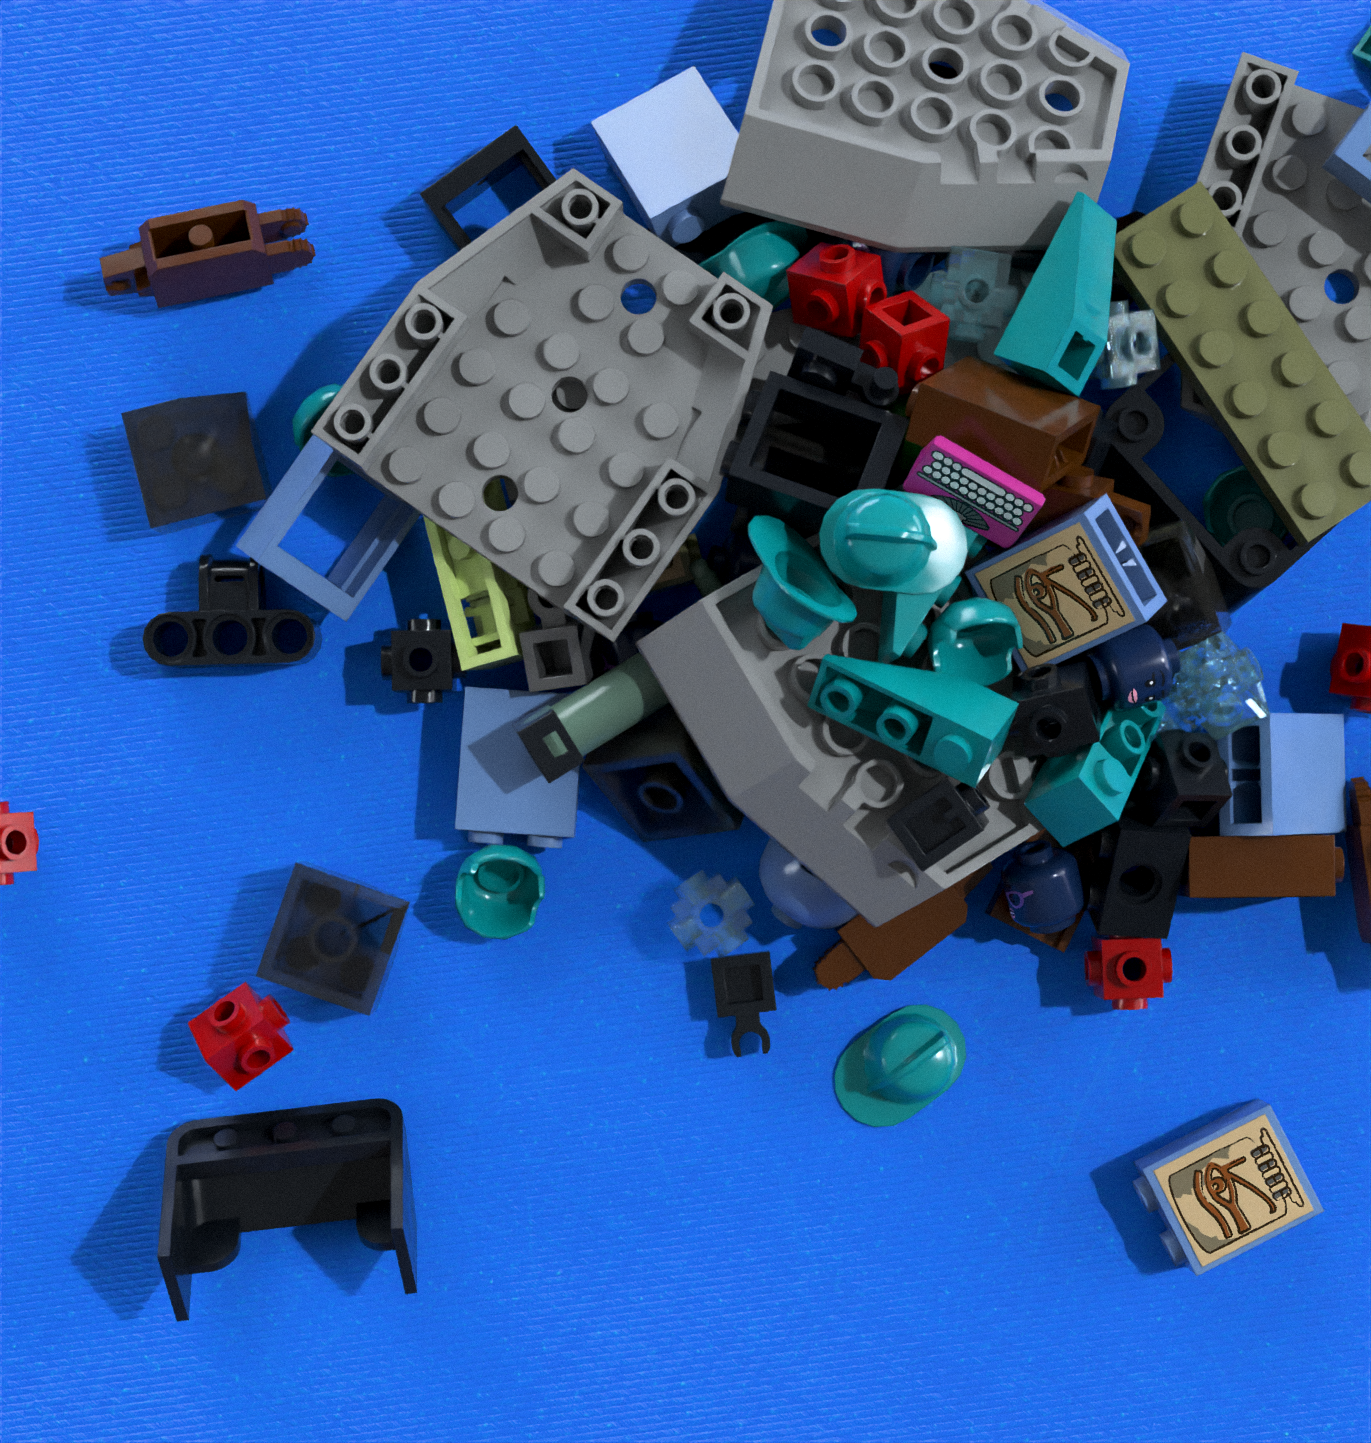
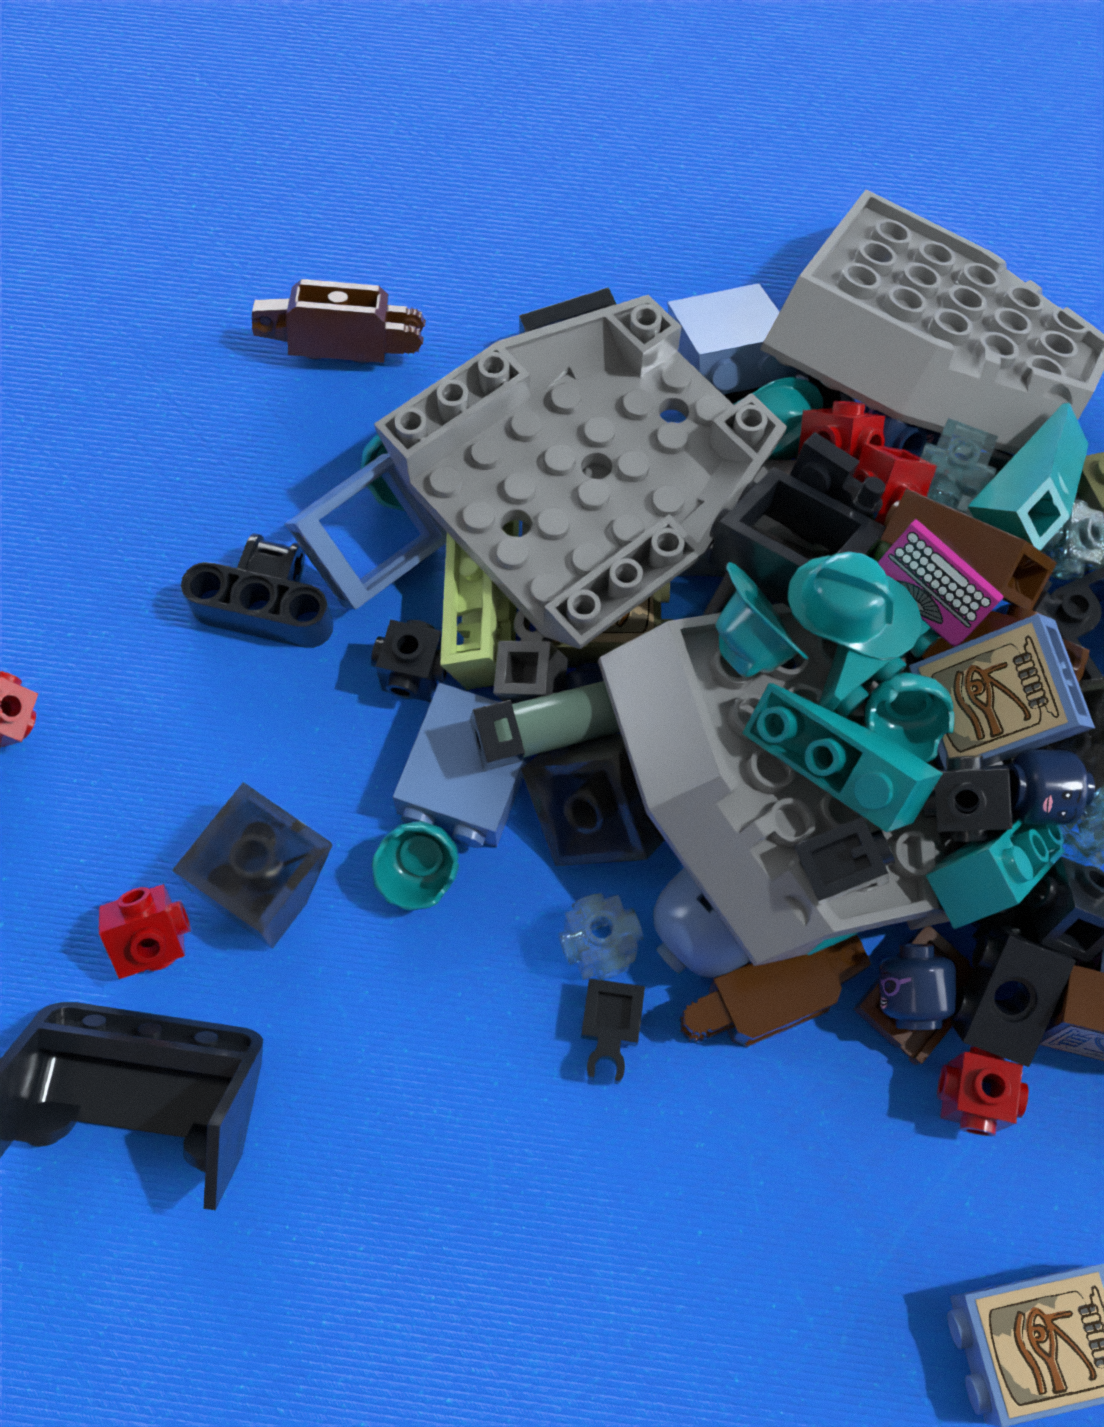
camera: 20 degrees right, 20 degrees down
(197, 460) = (274, 464): clear smoke slope -> none
(900, 1065) = (740, 1135): teal piece -> none

